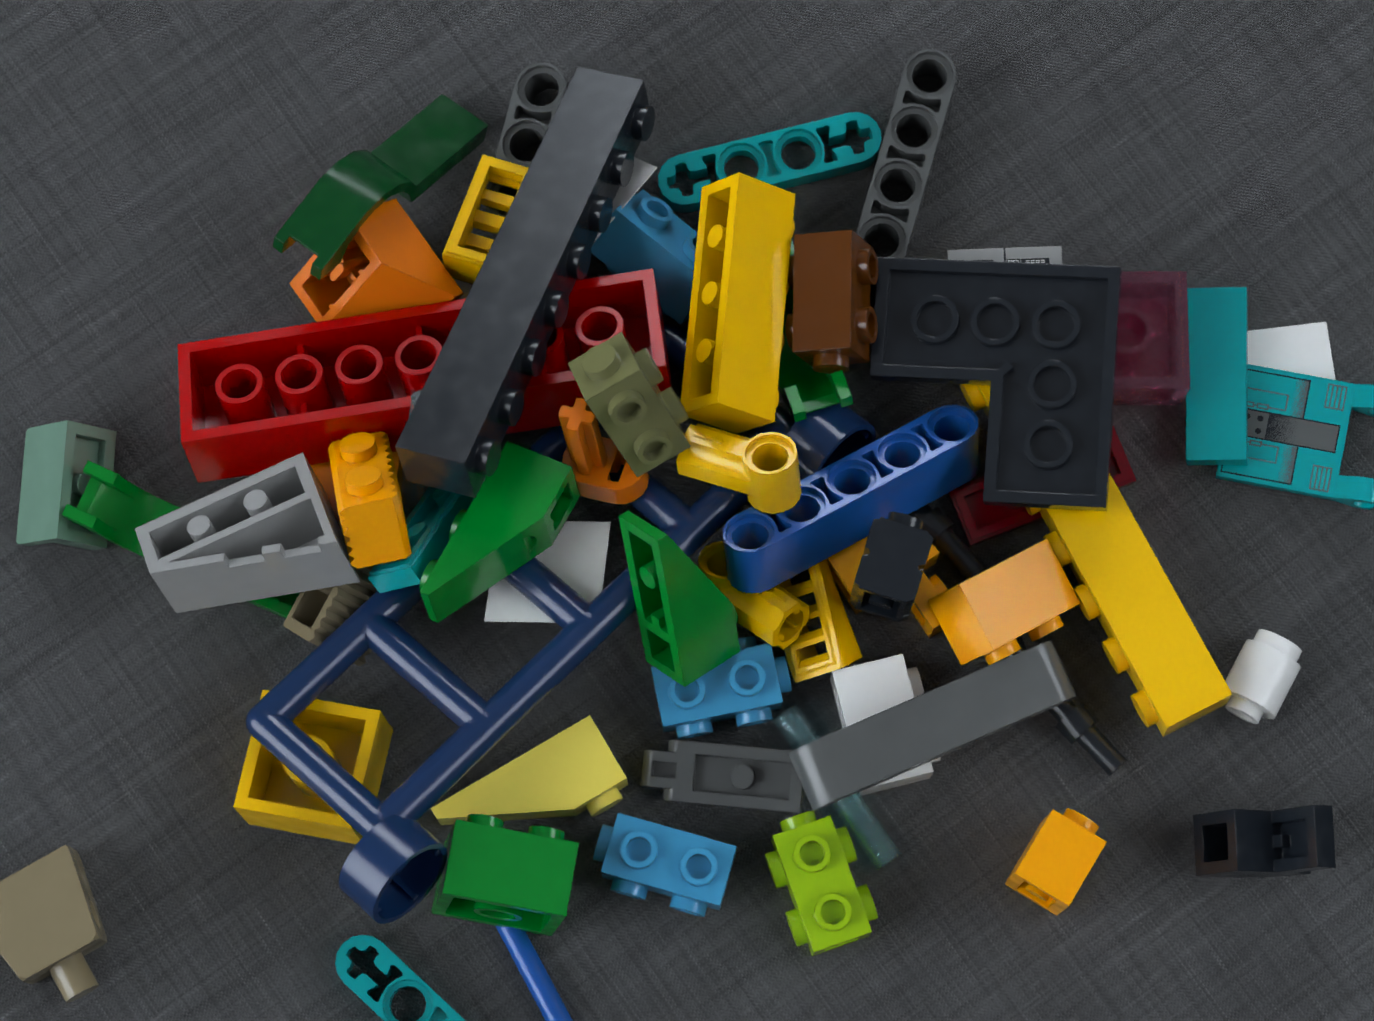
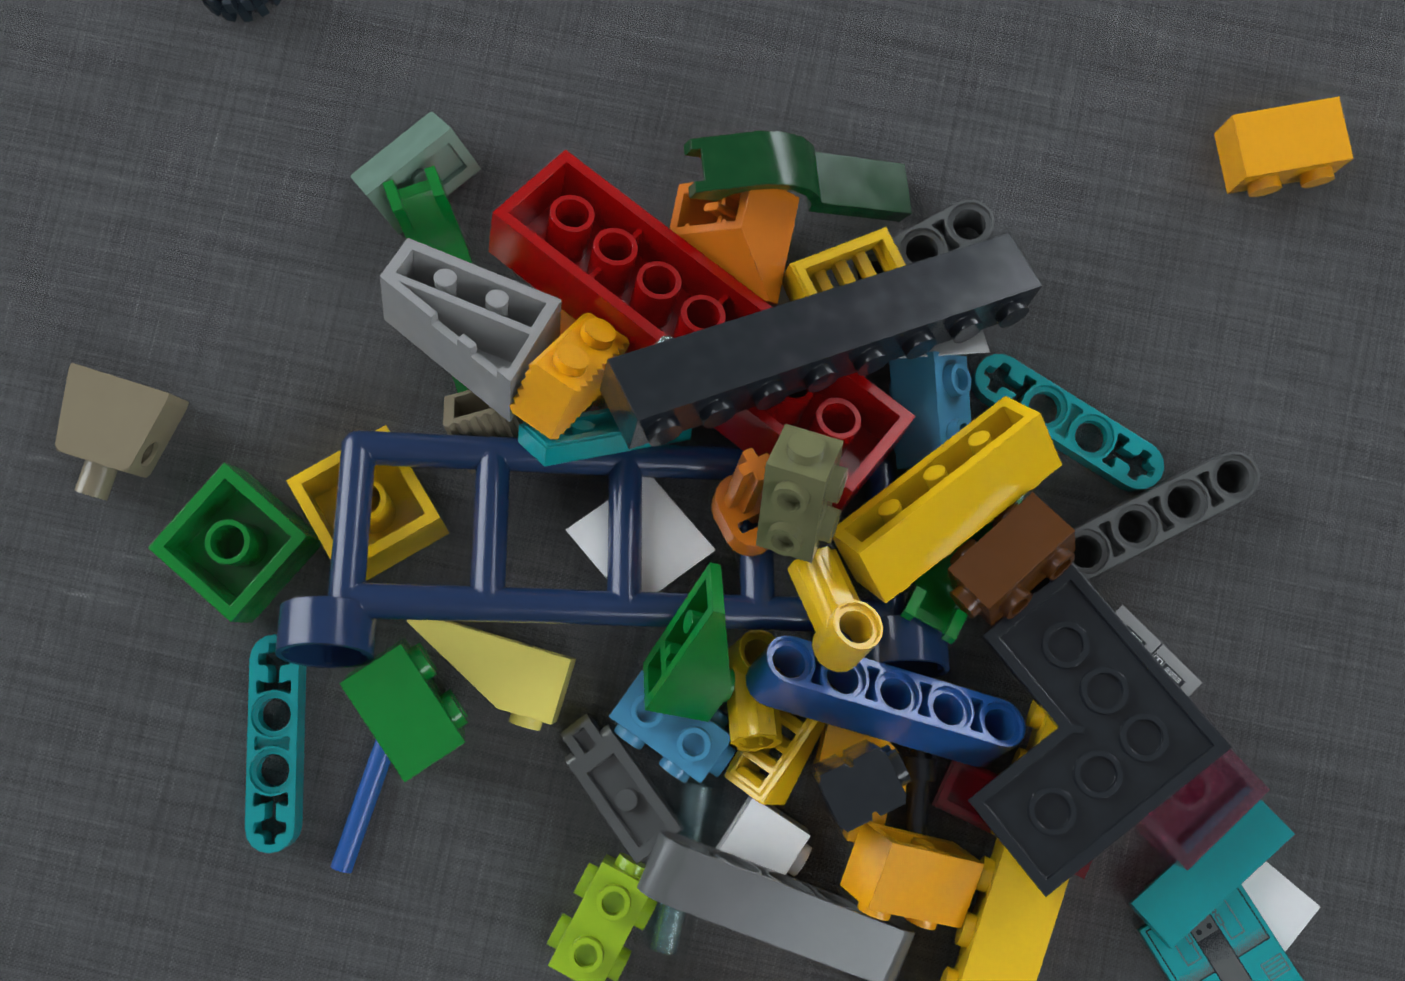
camera: 50 degrees right, 5 degrees up
(241, 901) = (236, 544): none -> green brick
(503, 529) = (633, 485): green slope -> none
(664, 861) = (520, 803): dark azure brick -> none

